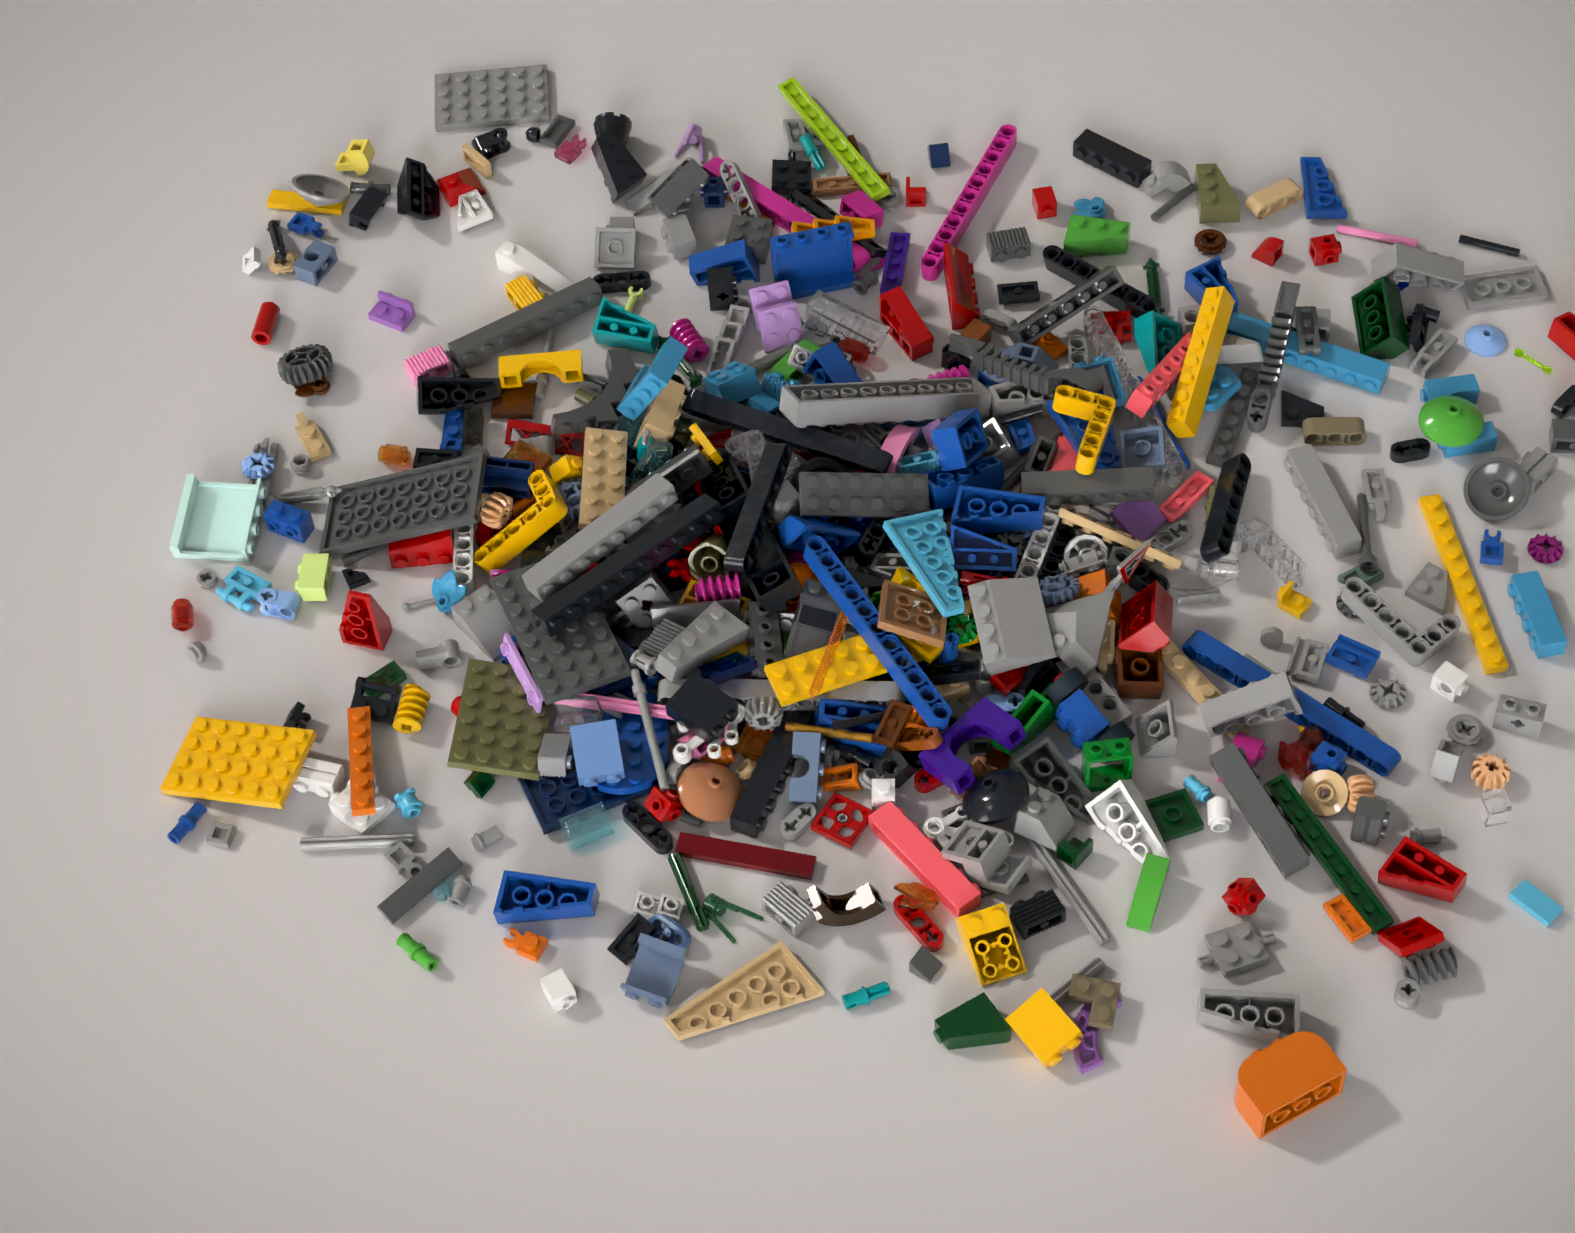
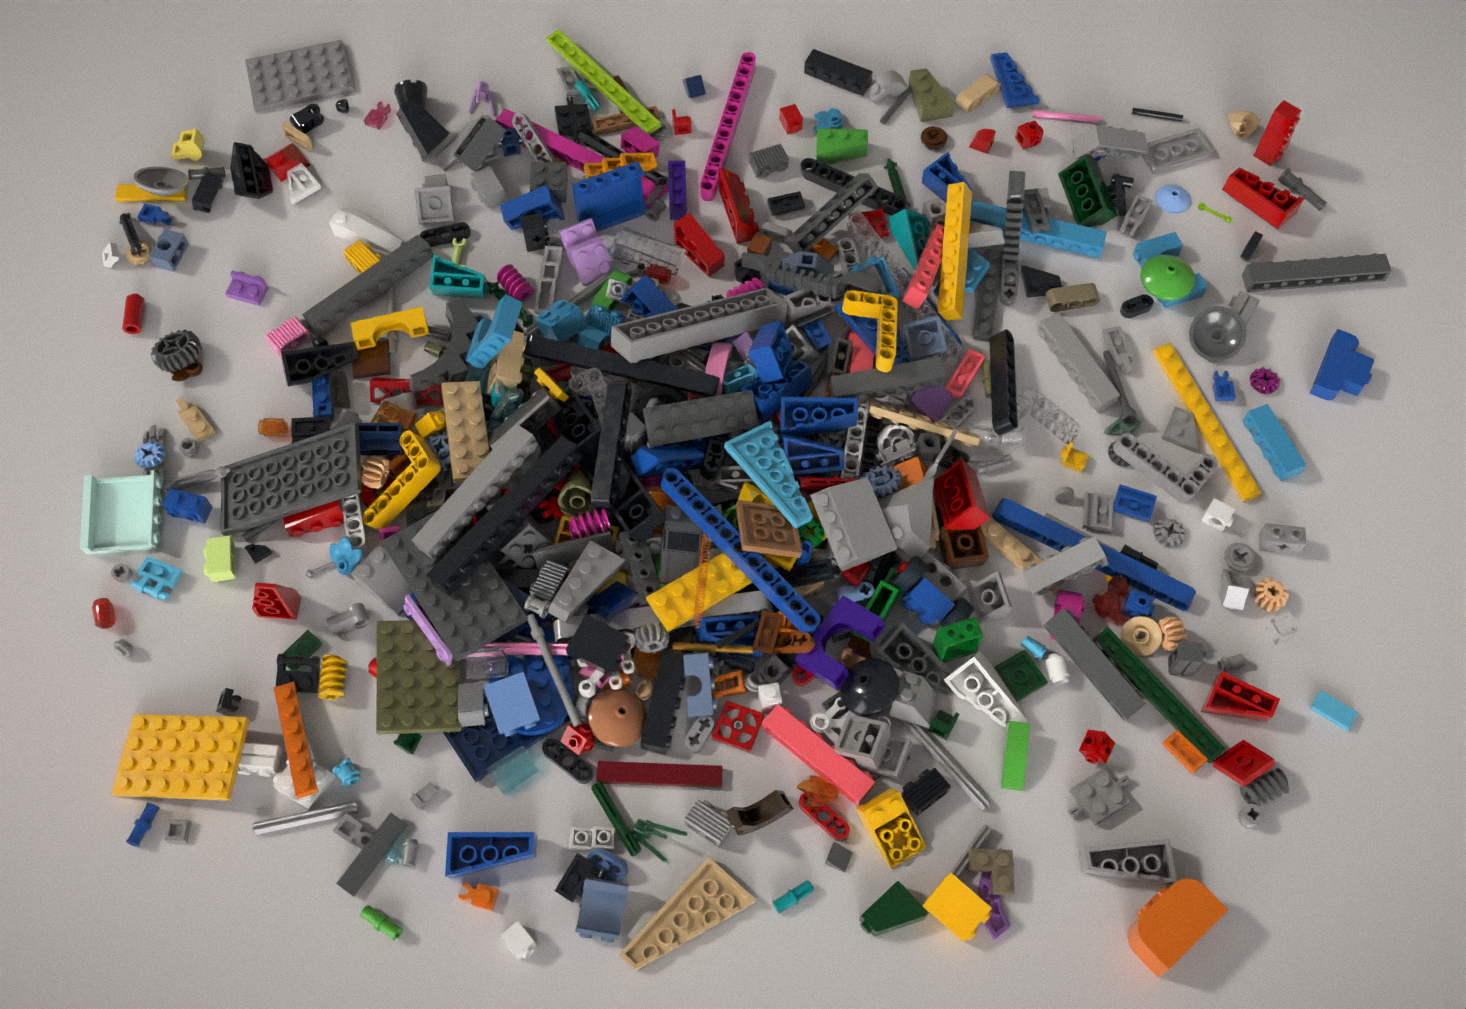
camera: 15 degrees left, 10 degrees up
(280, 605) = (192, 588): light blue piece -> none
(557, 131) = (362, 100): dark grey tile -> none

